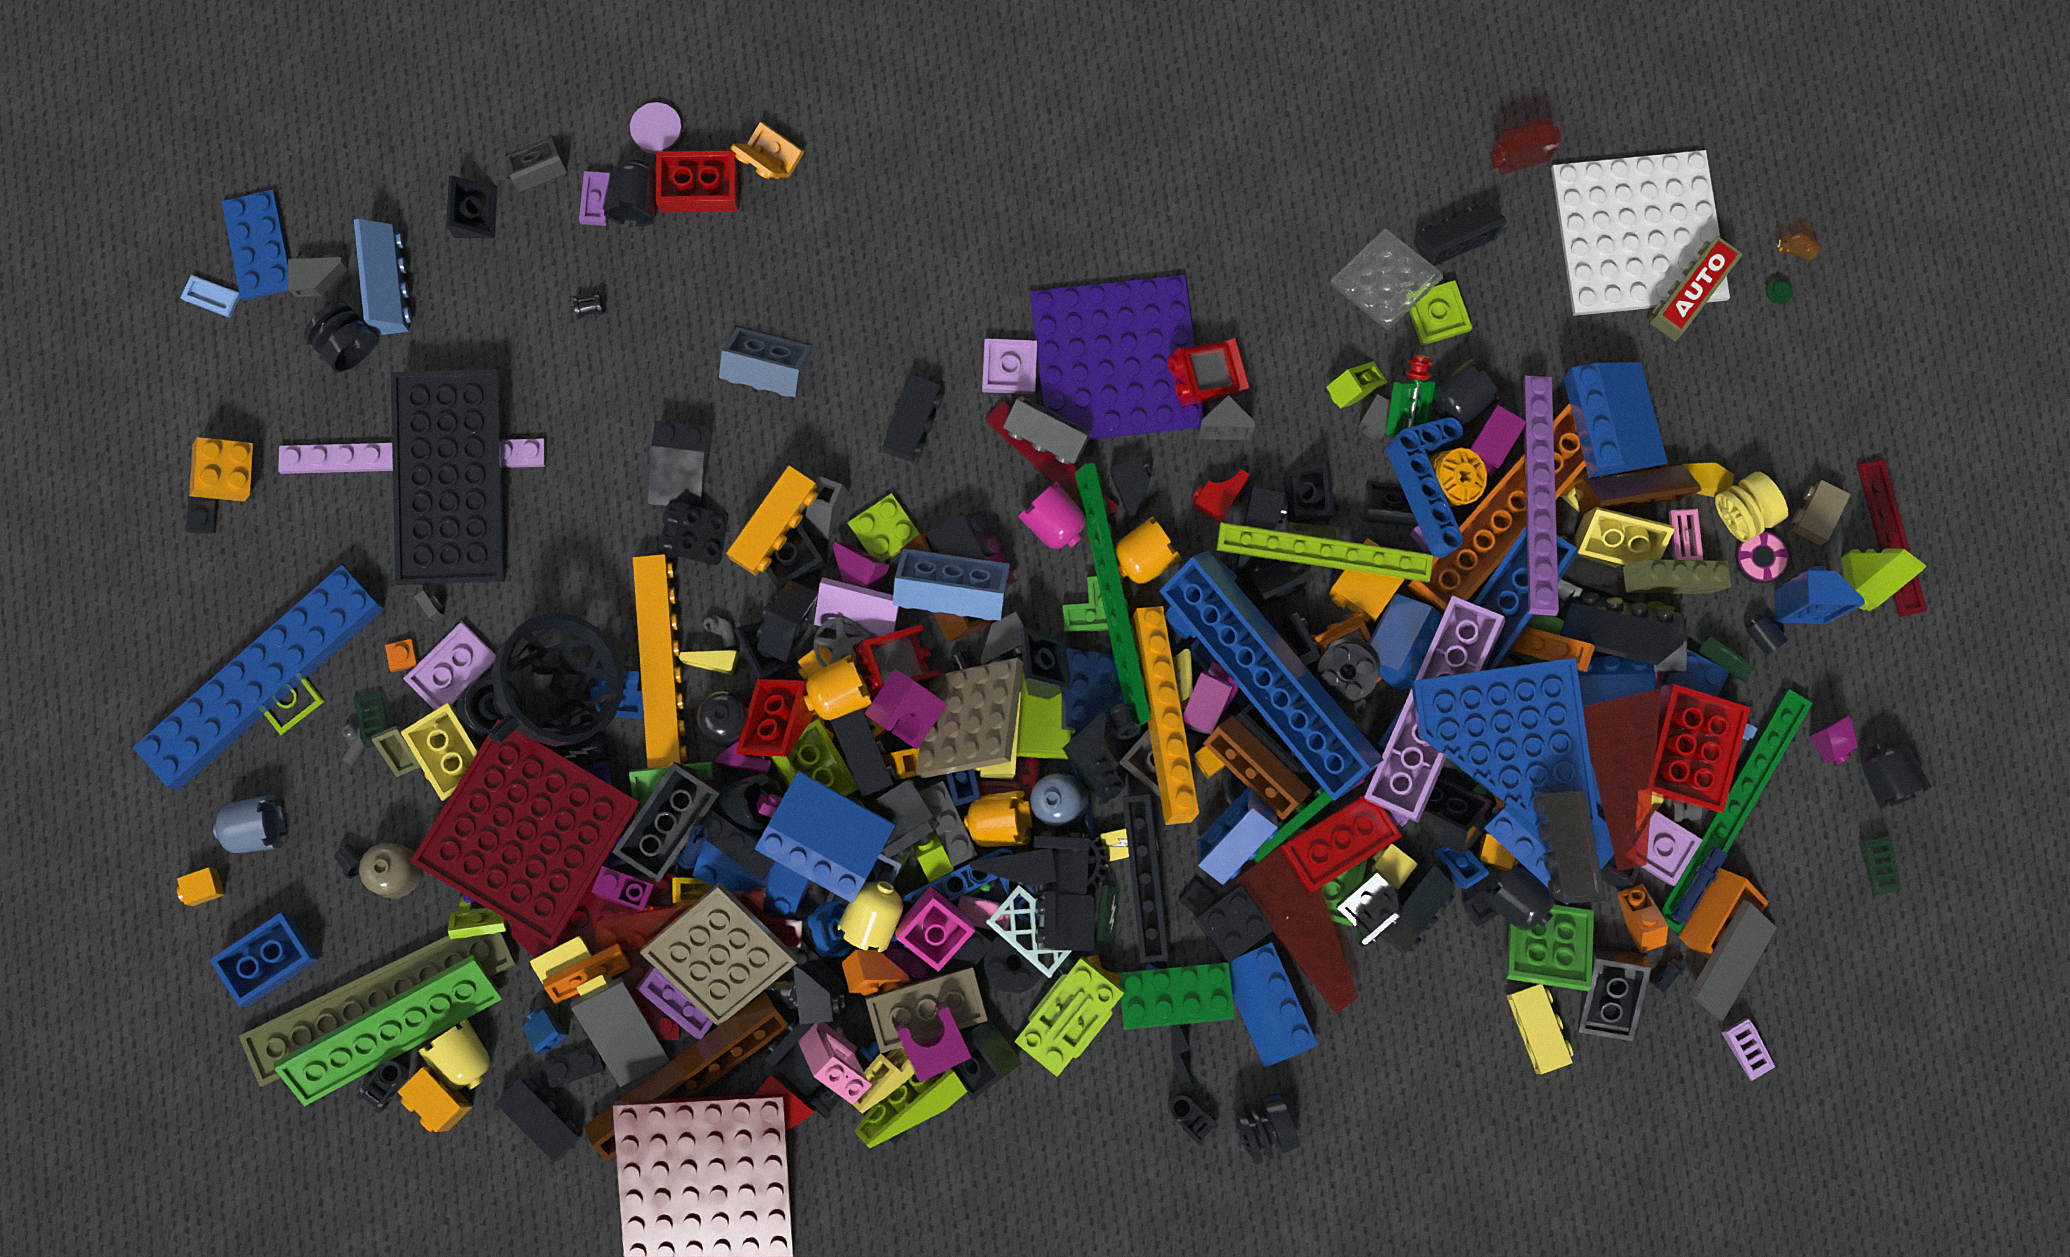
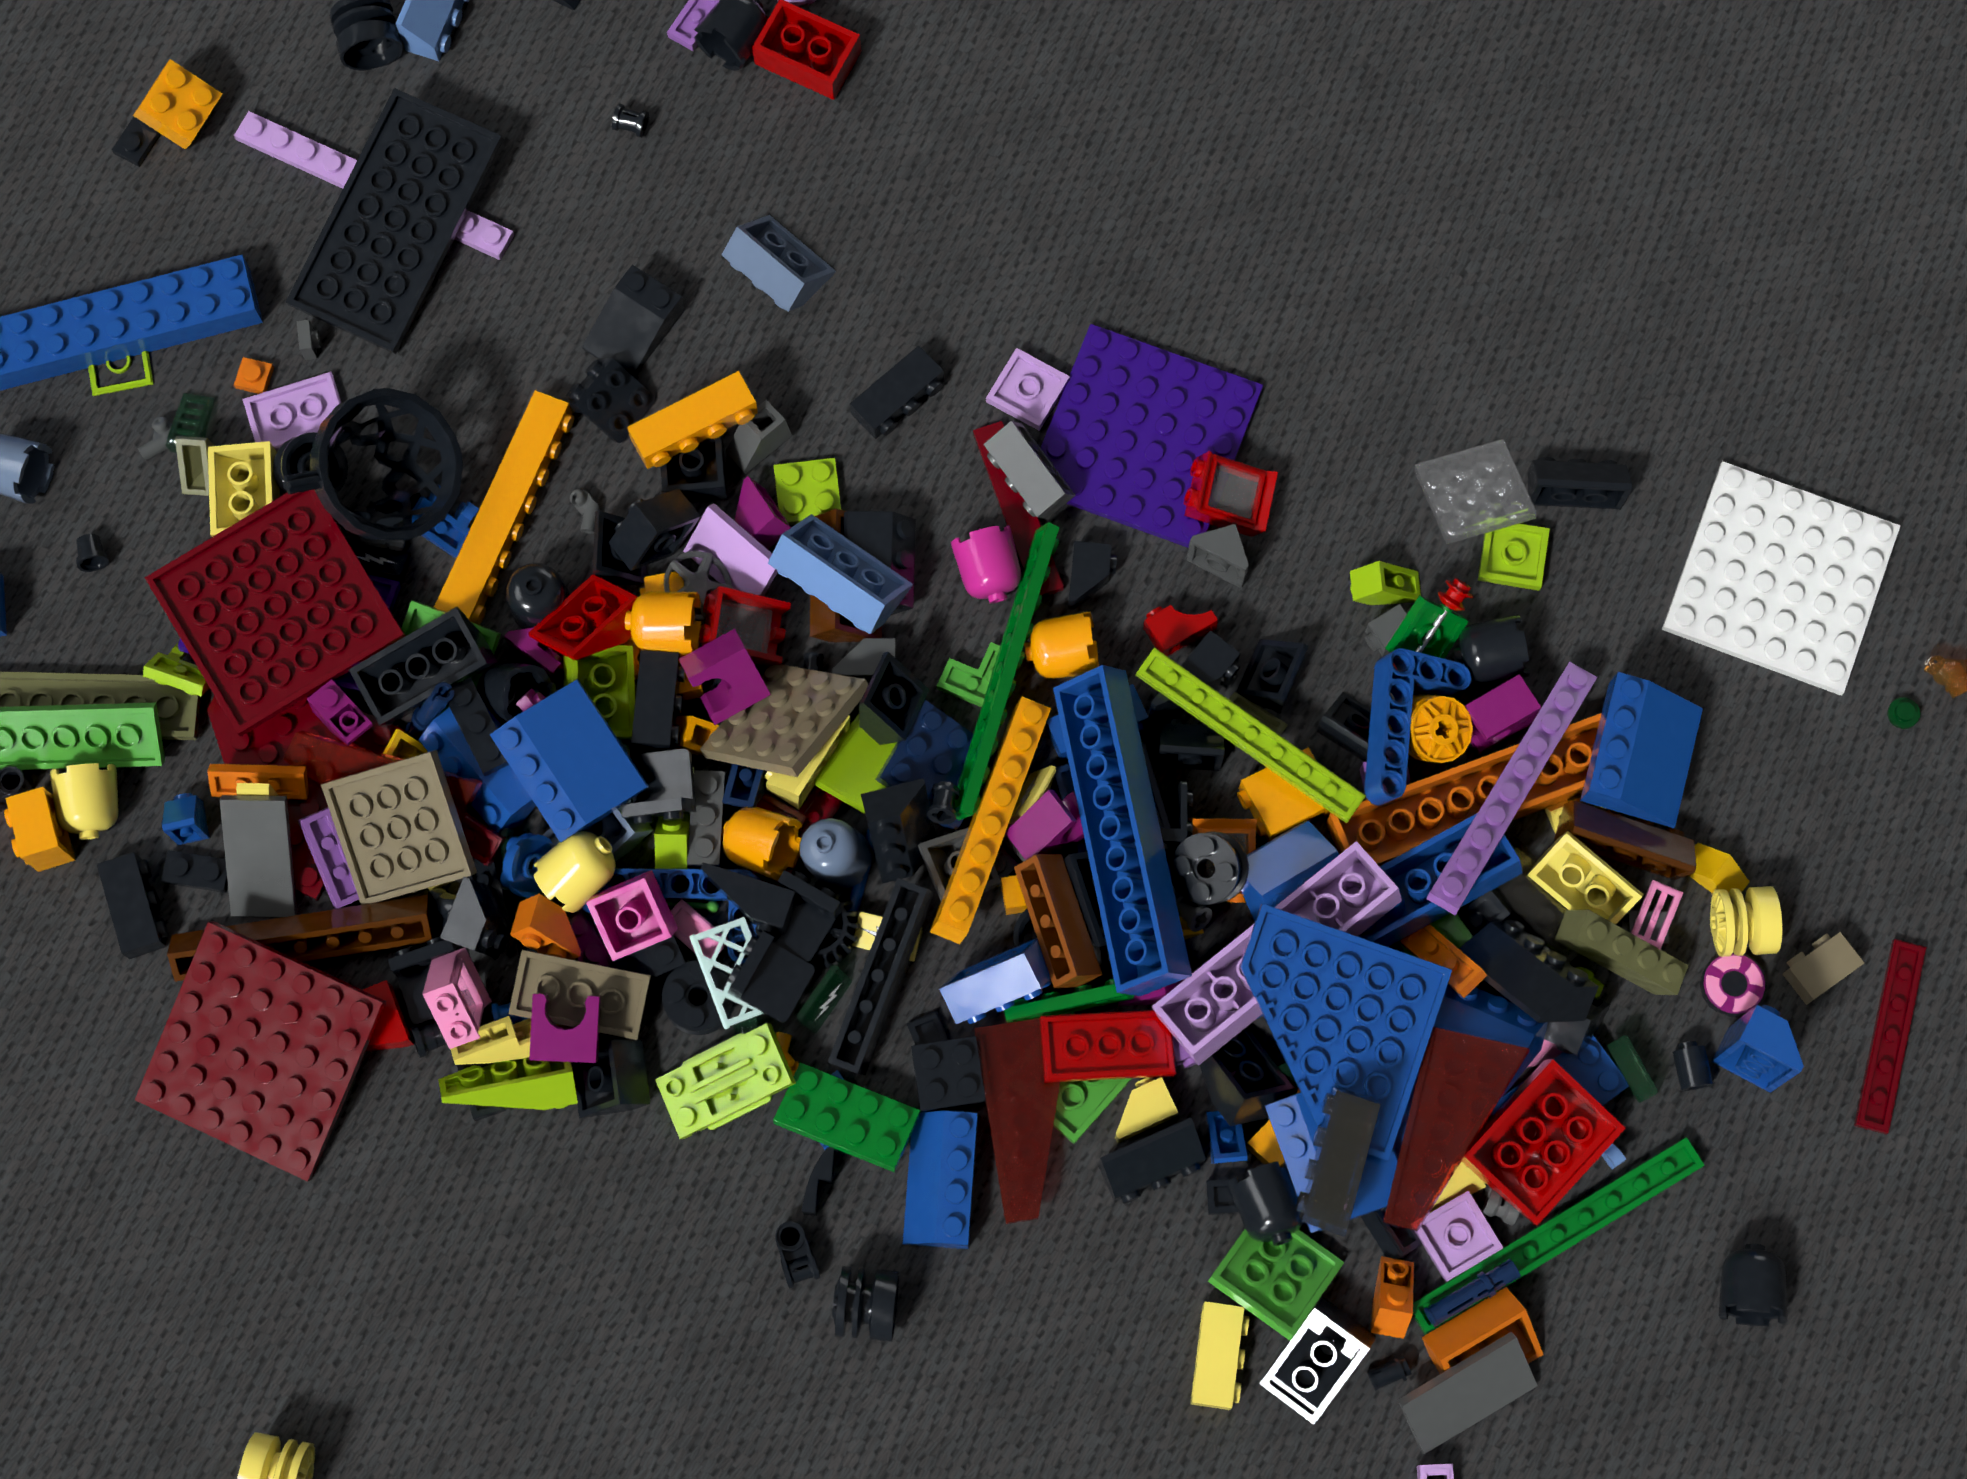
camera: 30 degrees right, 5 degrees down
(388, 870) = (119, 580): dark tan cylinder -> none
(561, 958) = (242, 751): light yellow slope -> none
(720, 661) = (565, 538): light yellow slope -> none
(769, 153) = (895, 56): light orange bracket -> none
(1372, 907) = (1102, 1127): black bracket -> none
(1525, 146) = (1699, 425): clear red brick -> none
(1696, 288) = (1808, 661): brick -> none
(1835, 740) = (1708, 1217): magenta slope -> none
(1869, 861) = (1677, 1375): clear green slope -> none
(1879, 574) = (1845, 1061): lime wedge -> none

